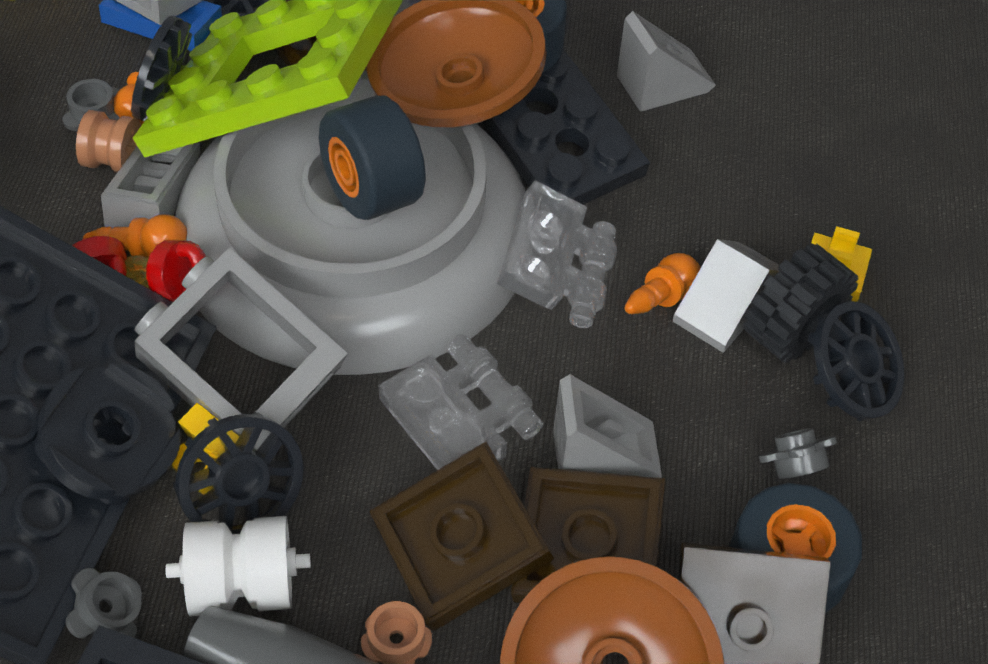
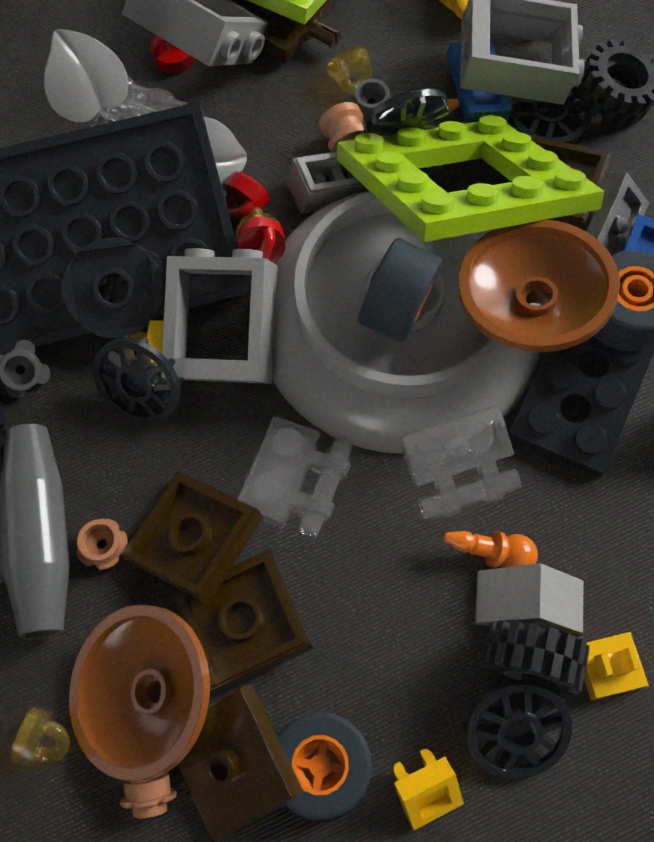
camera: 60 degrees right, 15 degrees up
(32, 97) = (348, 64): none -> clear yellow tile
(144, 234) = (287, 204): orange bar -> none
(228, 566) = (86, 428): white wheel -> none
(601, 433) = (326, 583): light grey slope -> none
(799, 453) = (407, 727): dark grey plate -> none
(873, 470) = (427, 791): none -> yellow tile

